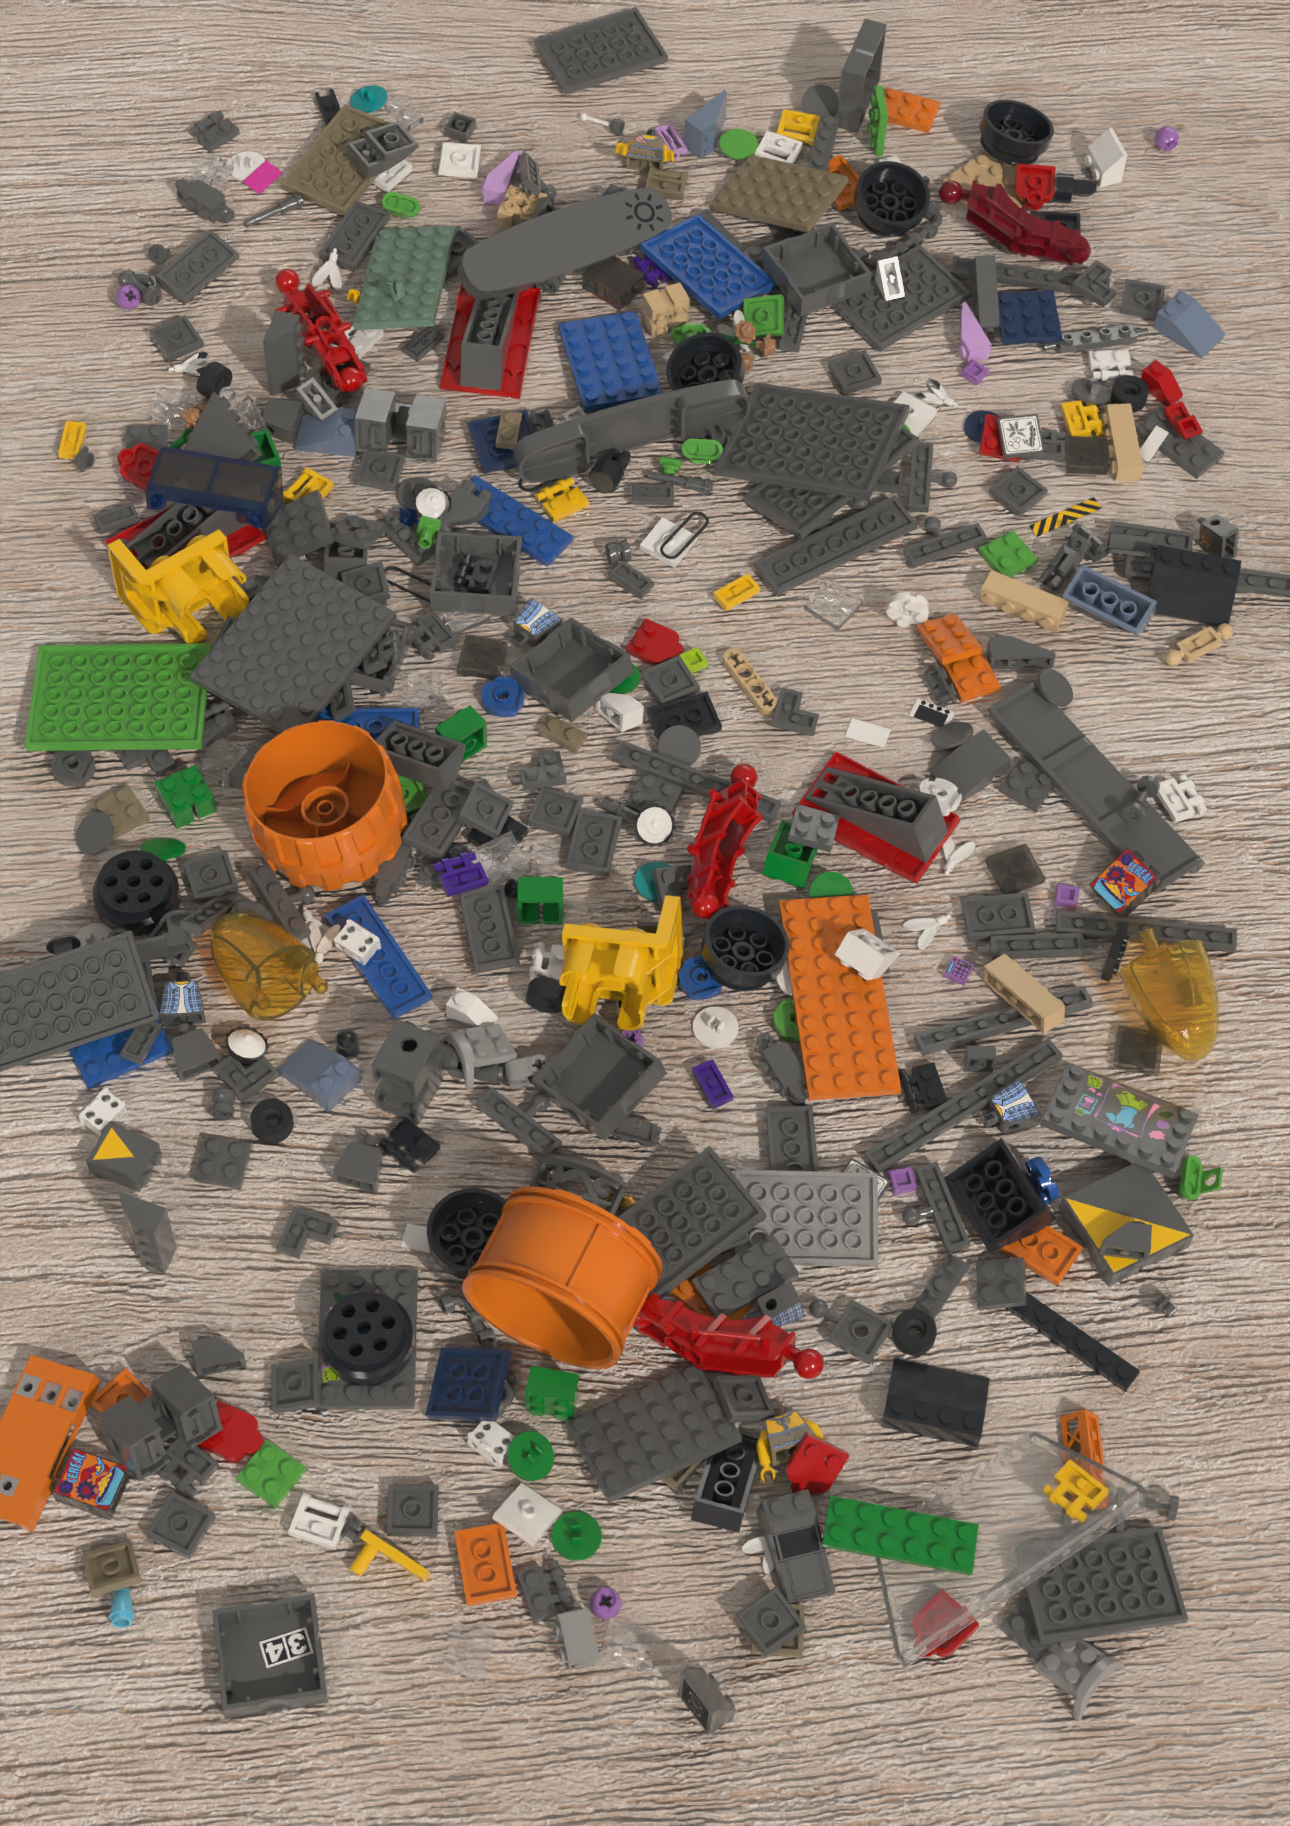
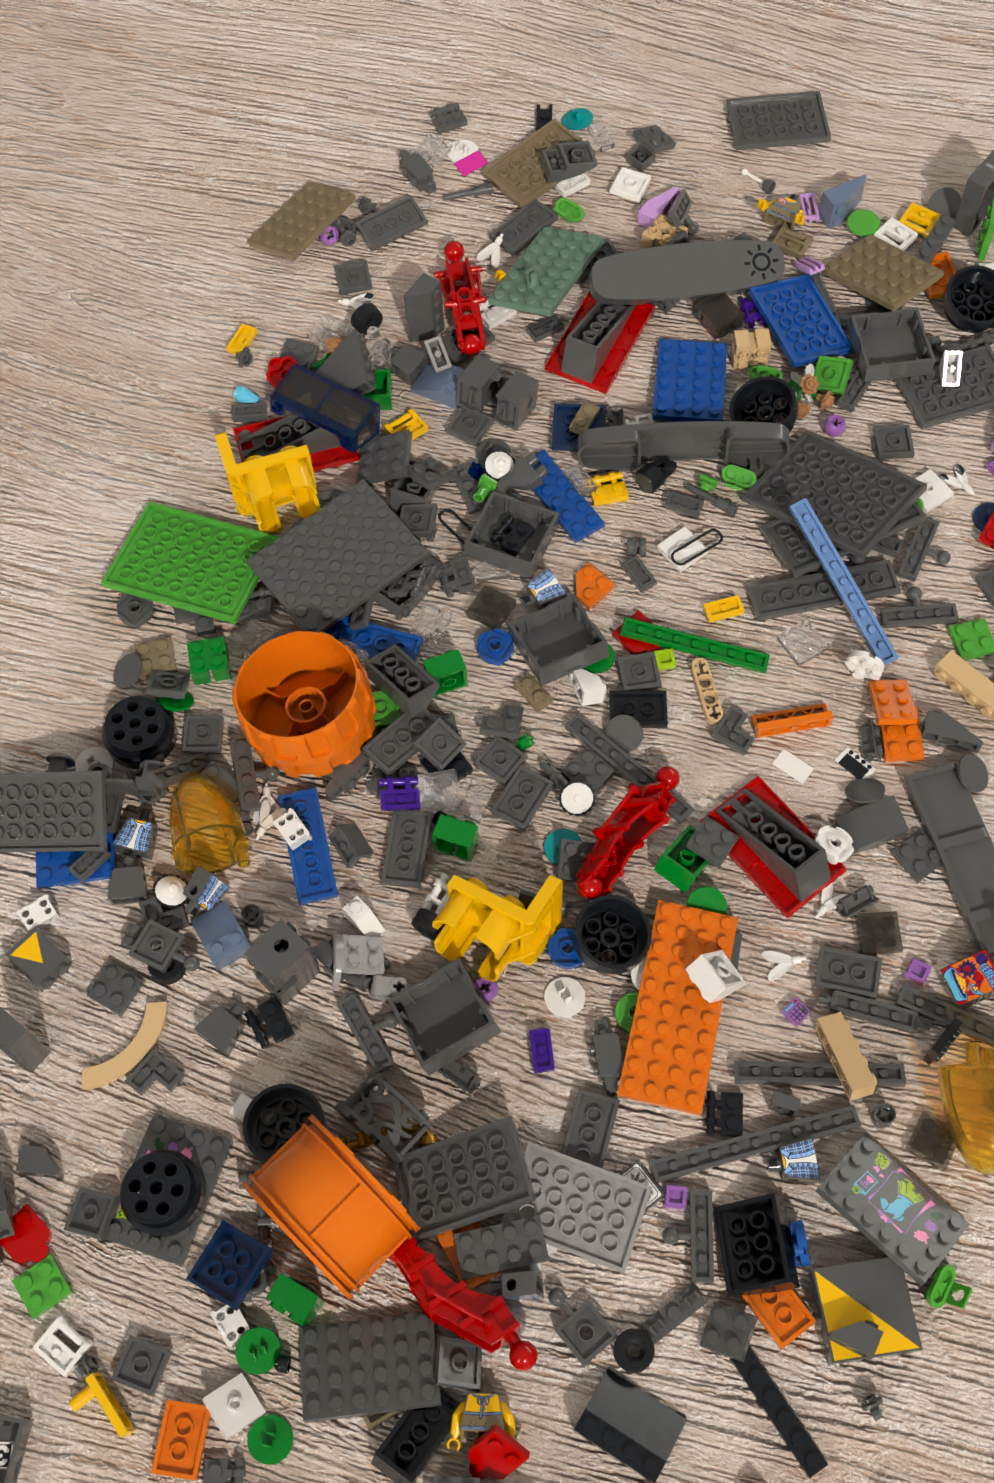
camera: 25 degrees right, 5 degrees up
(89, 287) = (301, 220): none -> dark tan plate
(103, 501) = (245, 396): none -> medium azure cone
(150, 833) = (168, 684): none -> dark grey plate
(268, 1111) = (163, 957): none -> dark grey plate
(271, 1222) = (133, 1054): none -> tan tile
(284, 1032) = (203, 891): none -> dark grey torso
(423, 942) = (350, 844): none -> dark grey panel
(467, 102) = (654, 139): none -> dark grey plate
(529, 496) = (580, 479): none -> clear plate
(563, 1460) = (284, 1363): none -> black hinge
(575, 785) = (525, 742): none -> green plate
(584, 604) = (592, 586): none -> orange plate
(694, 204) = (807, 264): none -> lavender tile
(719, 637) = (695, 645): none -> green tile
(785, 370) = (834, 425): none -> medium lavender piece
(853, 689) = (791, 723): none -> orange fence
(854, 527) = (843, 581): none -> medium blue plate
(975, 851) = (864, 899): none -> dark grey hinge
(1081, 1040) = (886, 1112): none -> dark grey wheel

